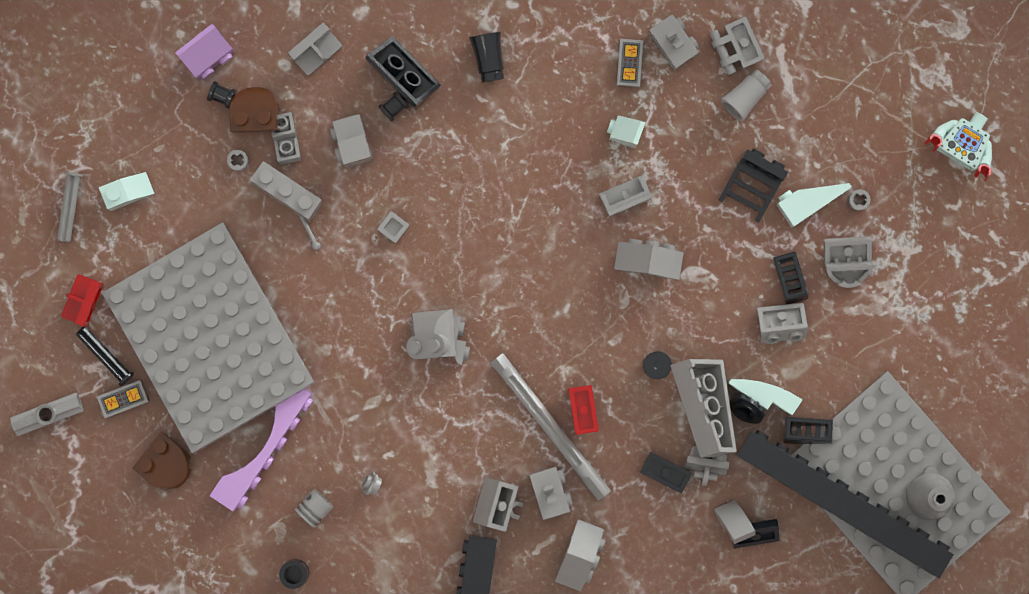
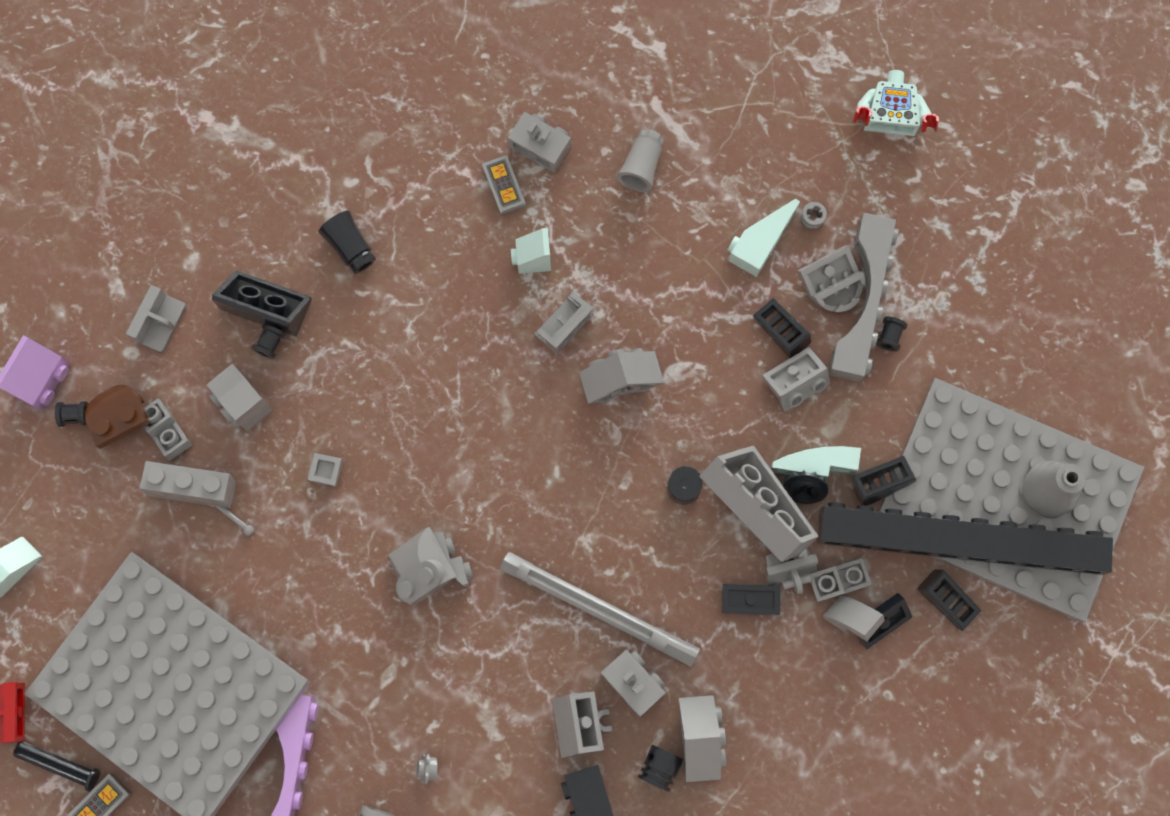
camera: 25 degrees left, 10 degrees down
(237, 167) = (118, 468): light grey bush -> none
(541, 563) = (660, 767): none -> black piece
(583, 409) = (626, 571): red panel -> none
(739, 489) = (840, 580): none -> light grey slope
(743, 43) = (612, 110): light grey plate -> none
(764, 171) = (695, 229): black plate -> none
(804, 523) = (932, 581): none -> black slope
(871, 322) = (891, 333): none -> black bush
(892, 247) = (873, 245): none -> light grey arch

